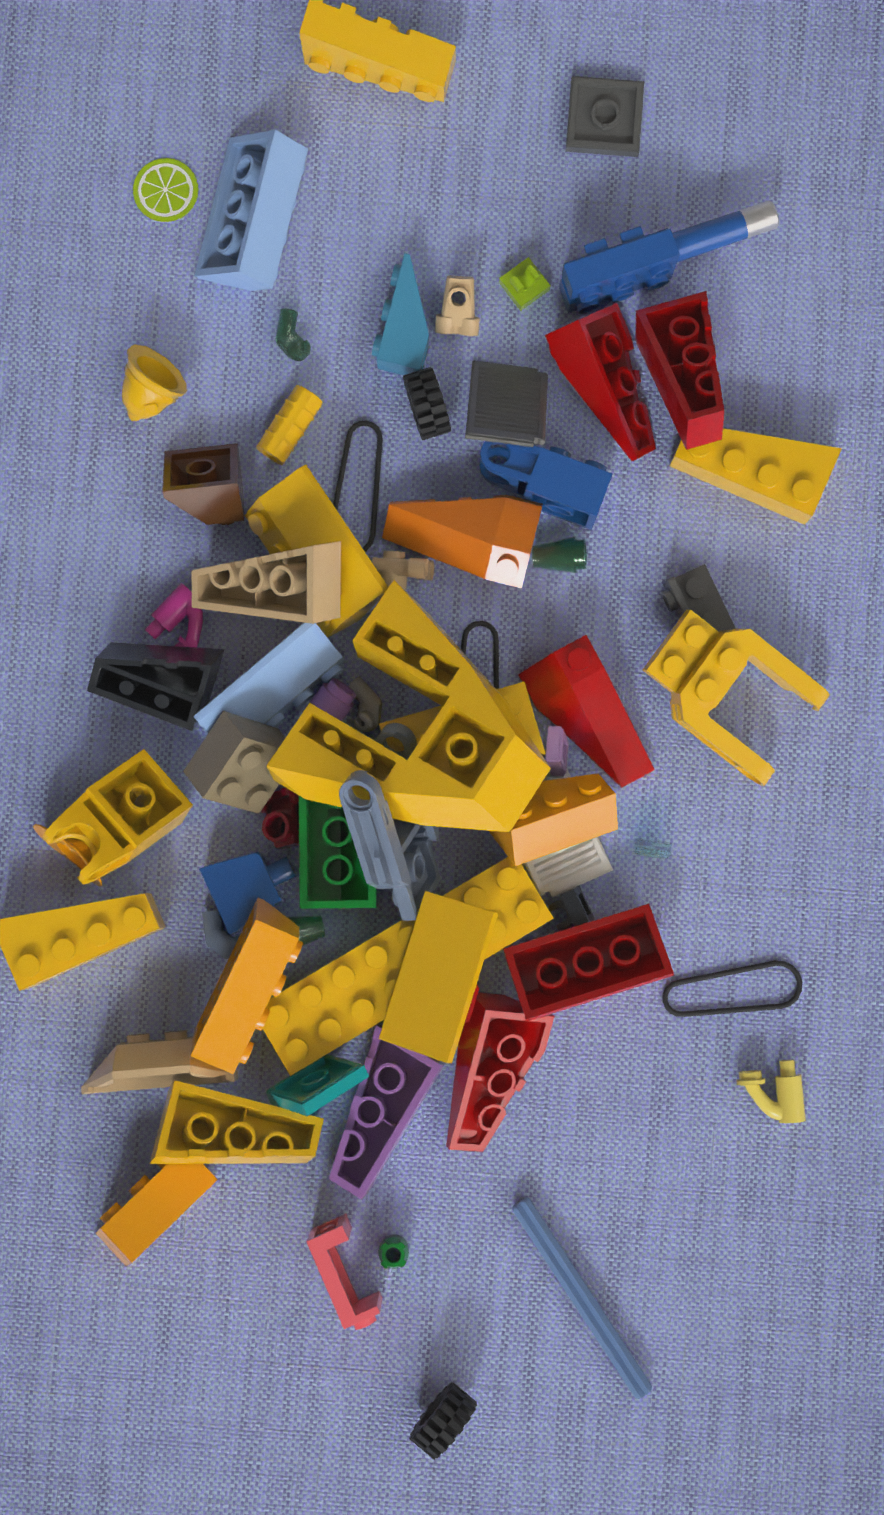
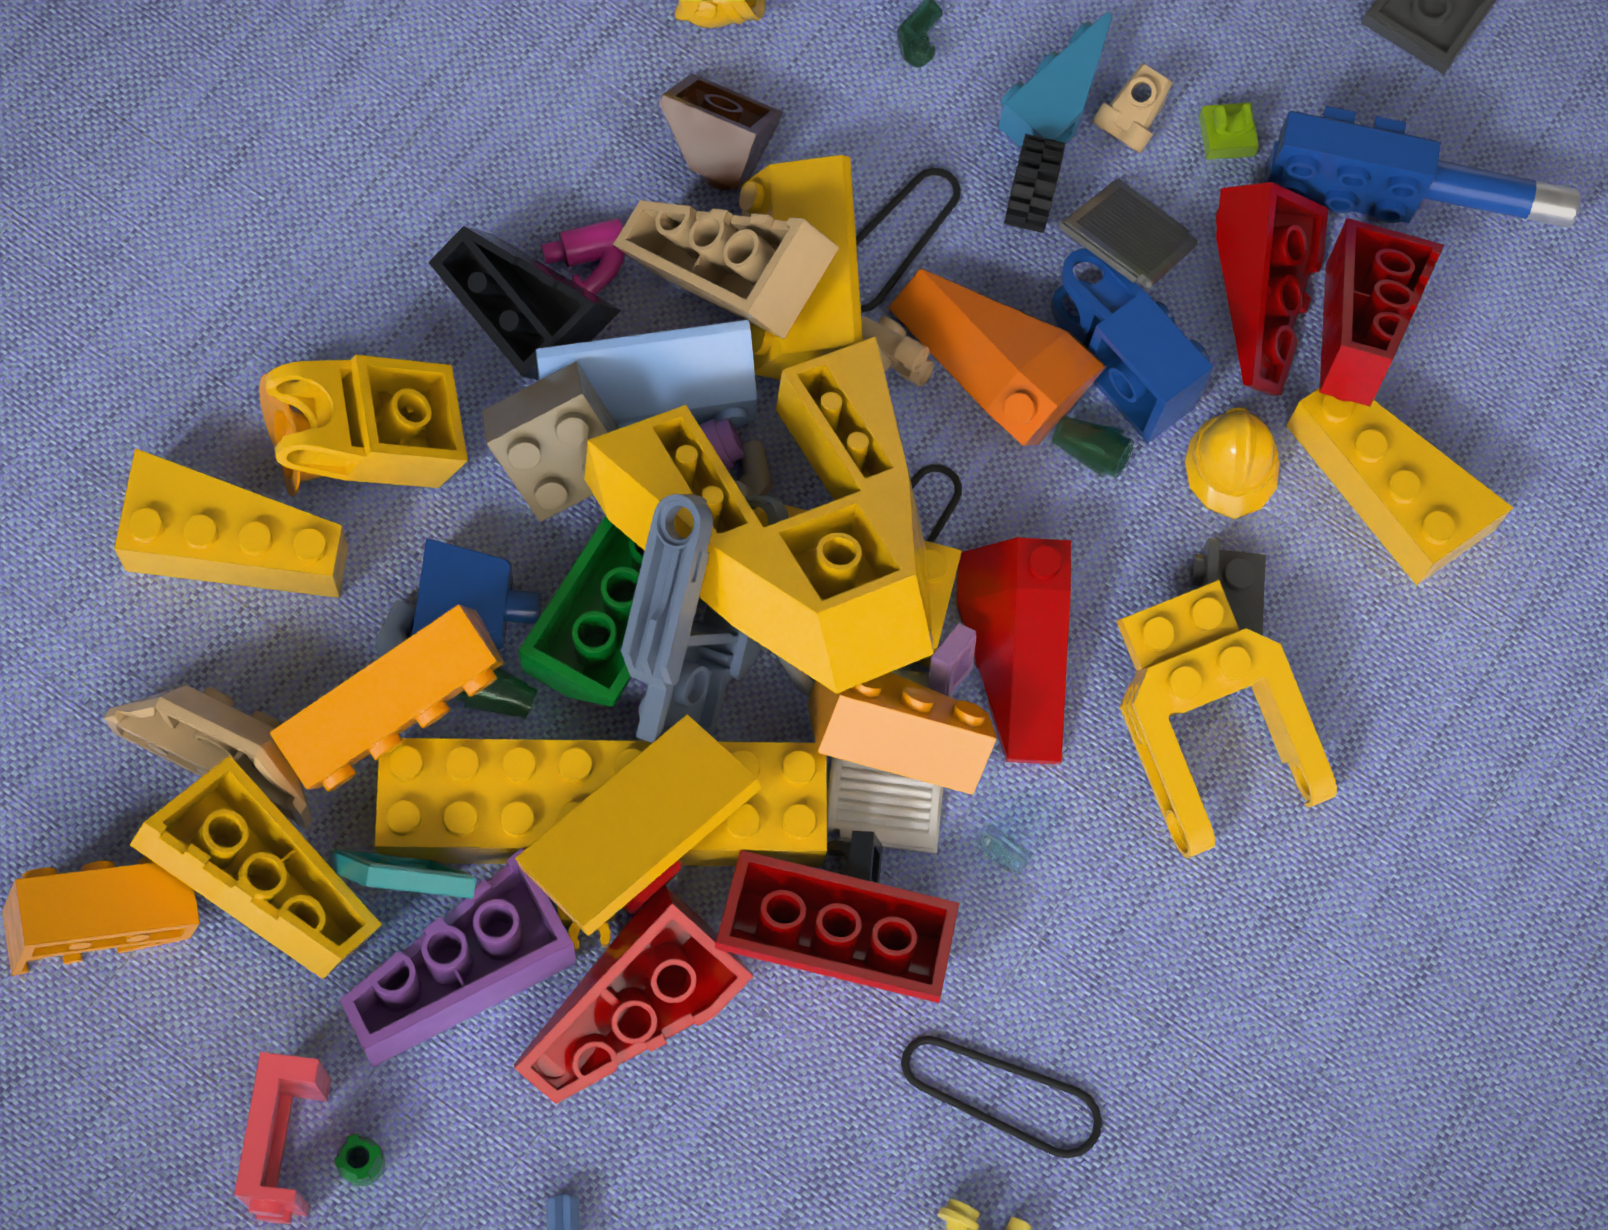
camera: 20 degrees right, 15 degrees down
(282, 819) = (561, 544): dark red plate -> none
(289, 425) = (856, 121): yellow axle -> none
(651, 513) = (1233, 463): none -> yellow piece

